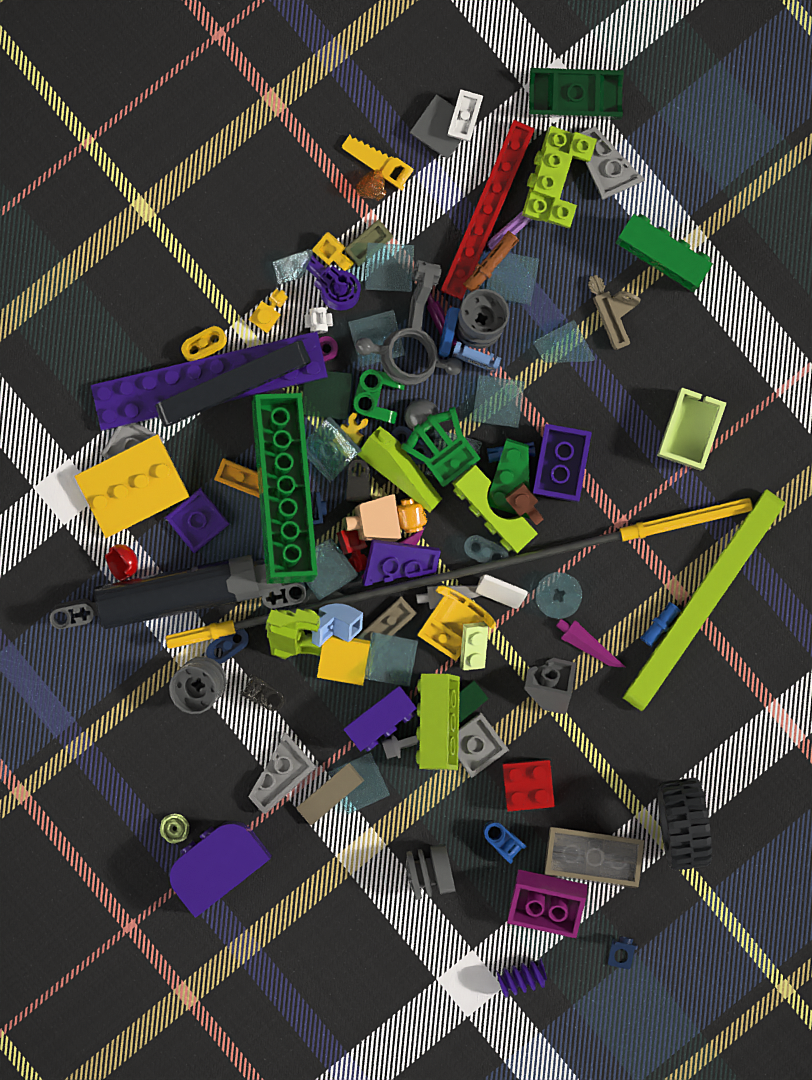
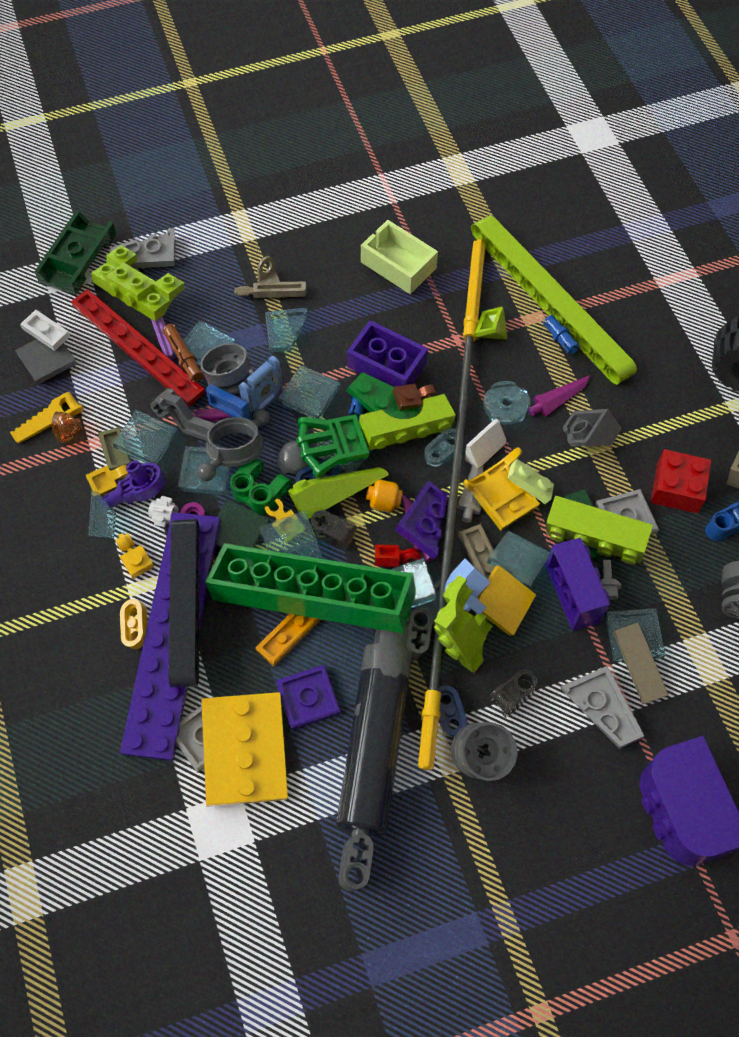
camera: 65 degrees left, 25 degrees down
(122, 561) = (319, 788): red hair -> none
(167, 831) = (641, 837): yellowish green plate -> none
(375, 520) = (377, 523): light nougat torso -> none
(645, 552) = (492, 324): none -> lime slope
(664, 253) = (240, 228): green brick -> none

